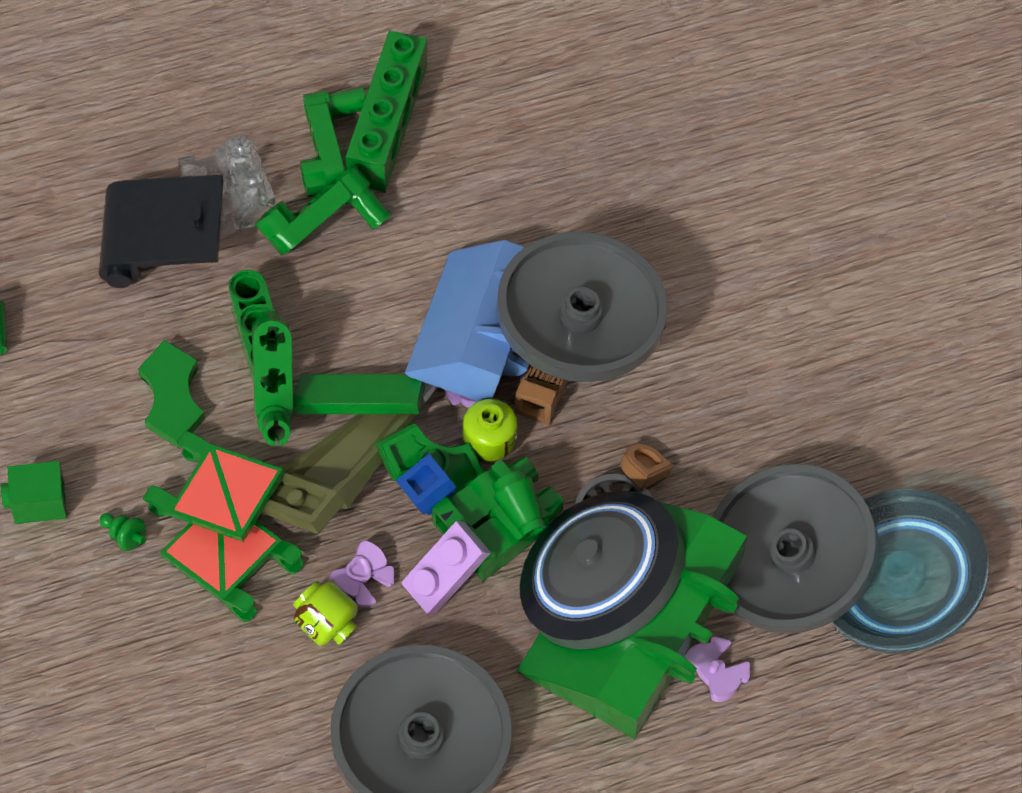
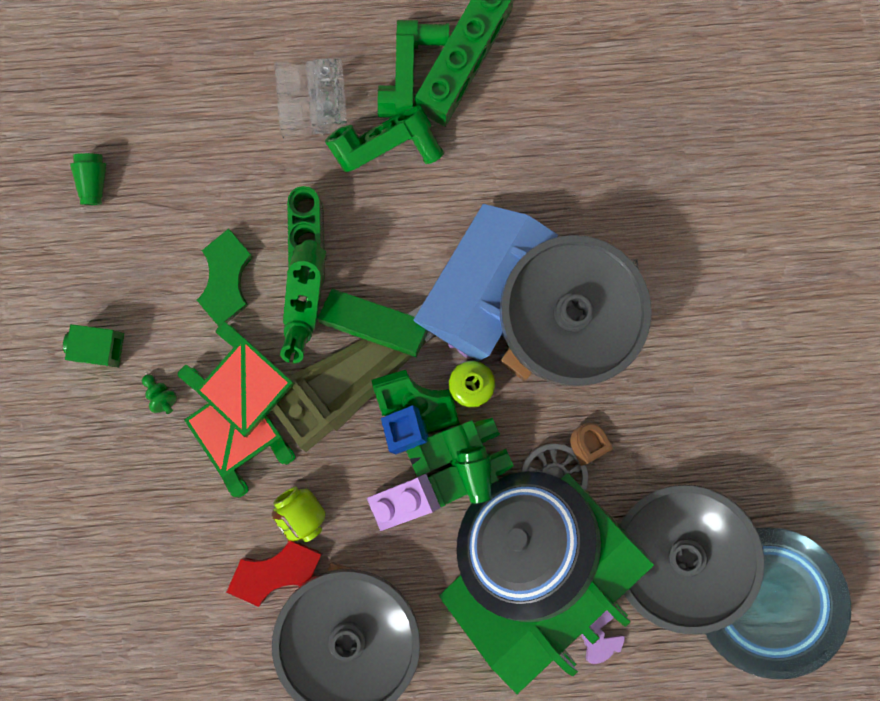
camera: 15 degrees right, 25 degrees up
(156, 225) = (246, 123): black door -> none
(295, 701) = (258, 578): none -> red tile
(367, 563) = (343, 474): lavender piece -> none

